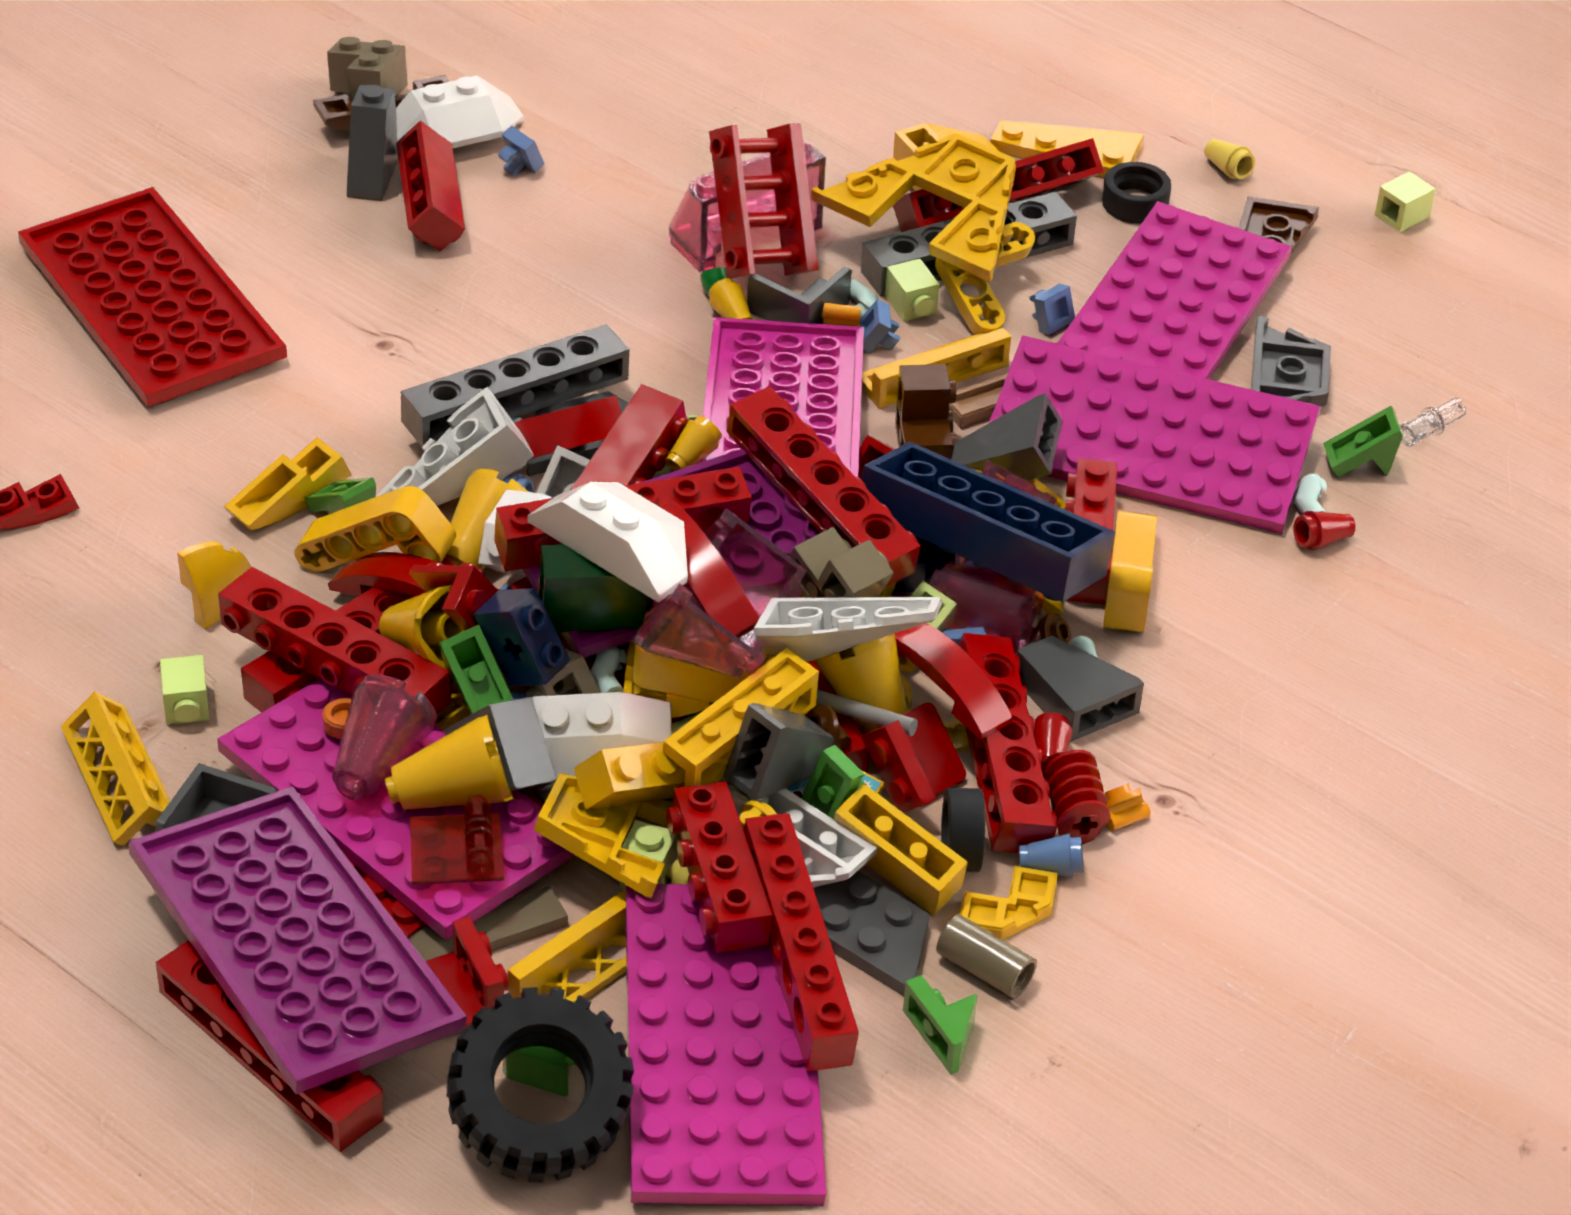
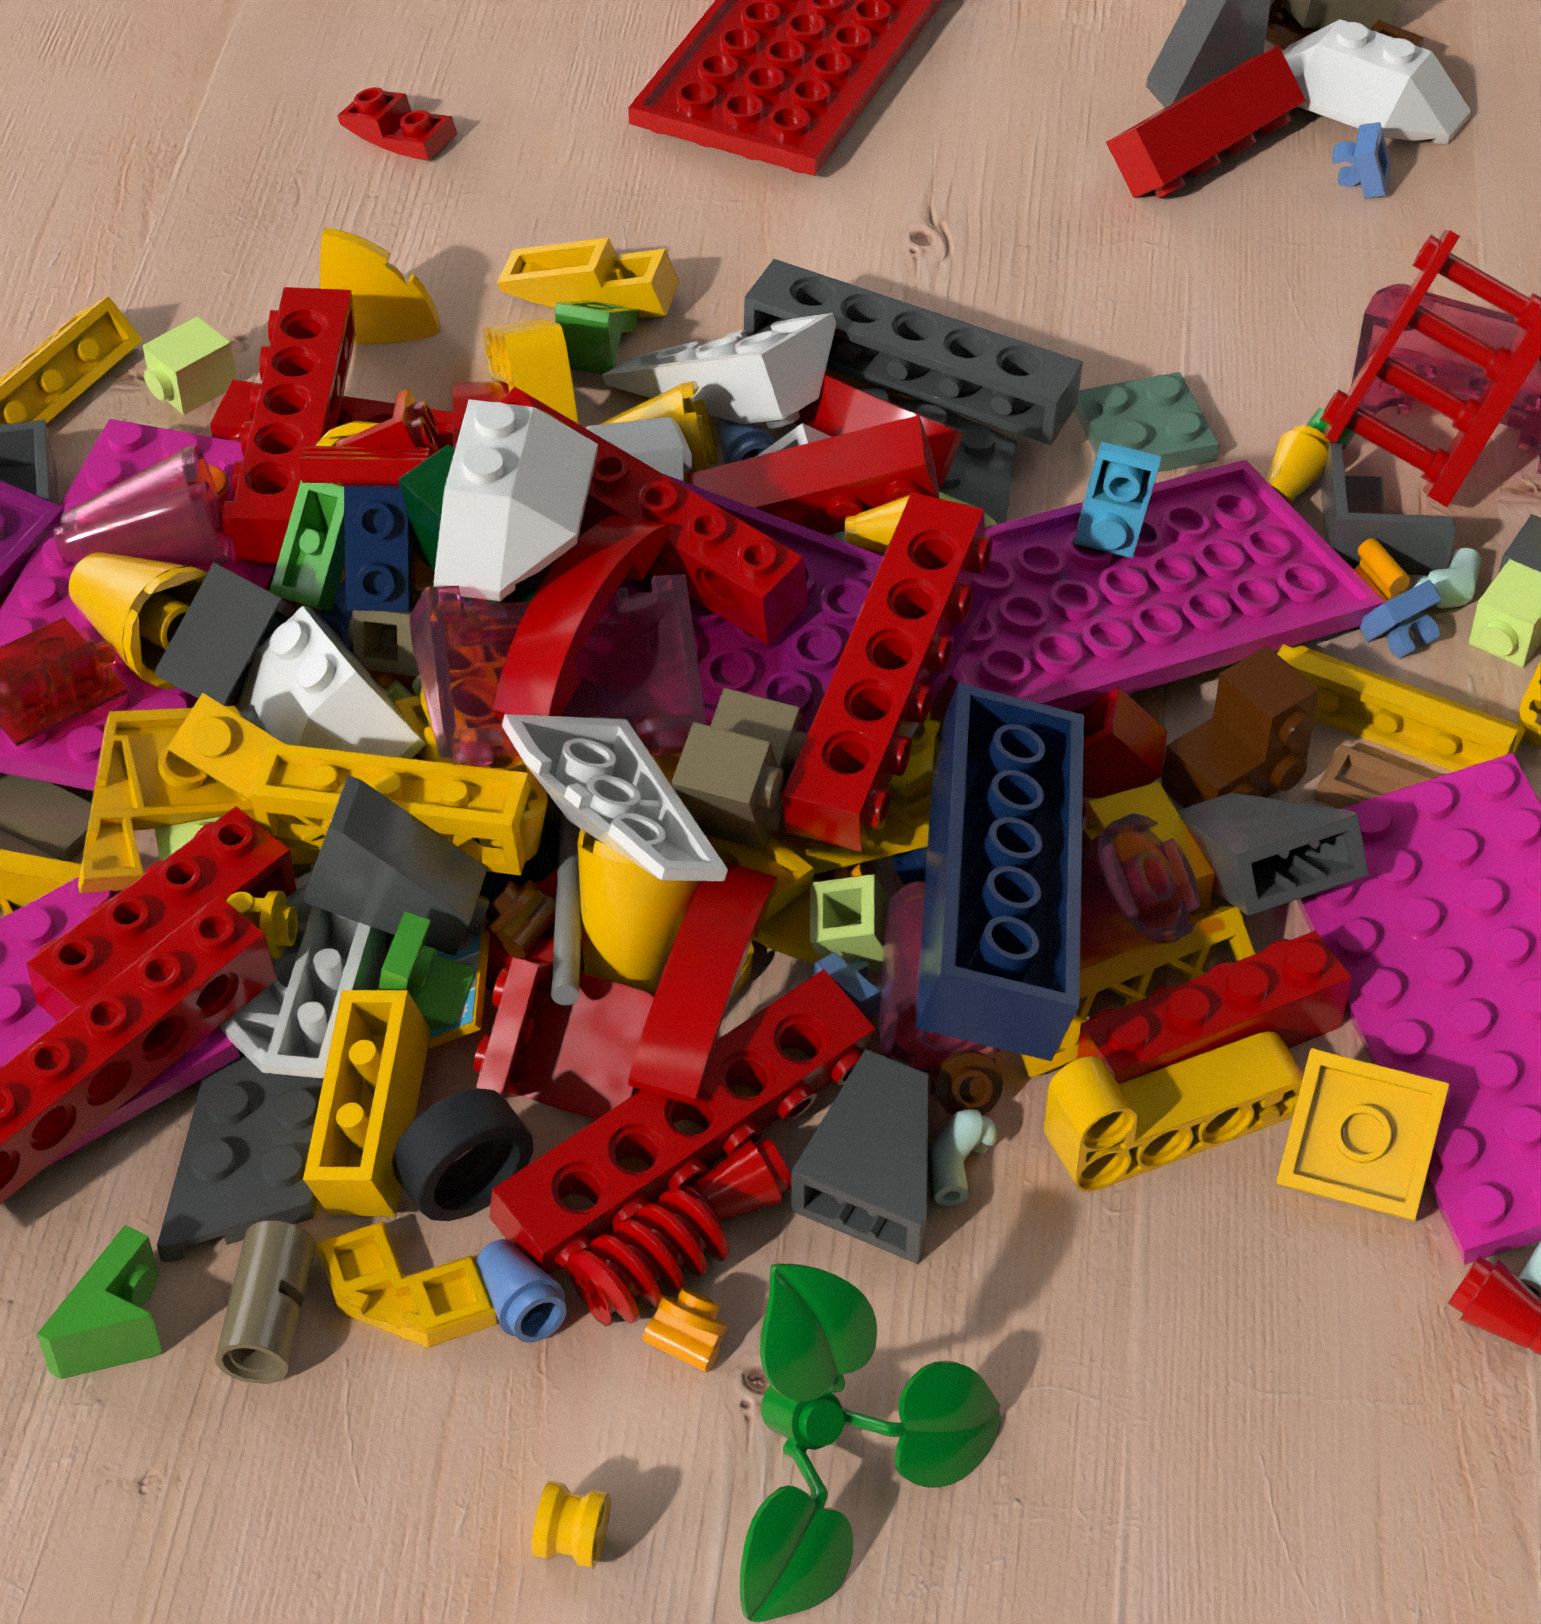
camera: 60 degrees right, 5 degrees up
(491, 599) = (358, 464): none -> red tile
(649, 337) = (1151, 417): none -> sand green plate
(740, 360) = (1116, 499): none -> medium azure slope
(1201, 515) = (1362, 1134): none -> yellow plate
(1215, 898) = (571, 1524): none -> yellow wheel
(1221, 779) = (808, 1340): none -> green plant

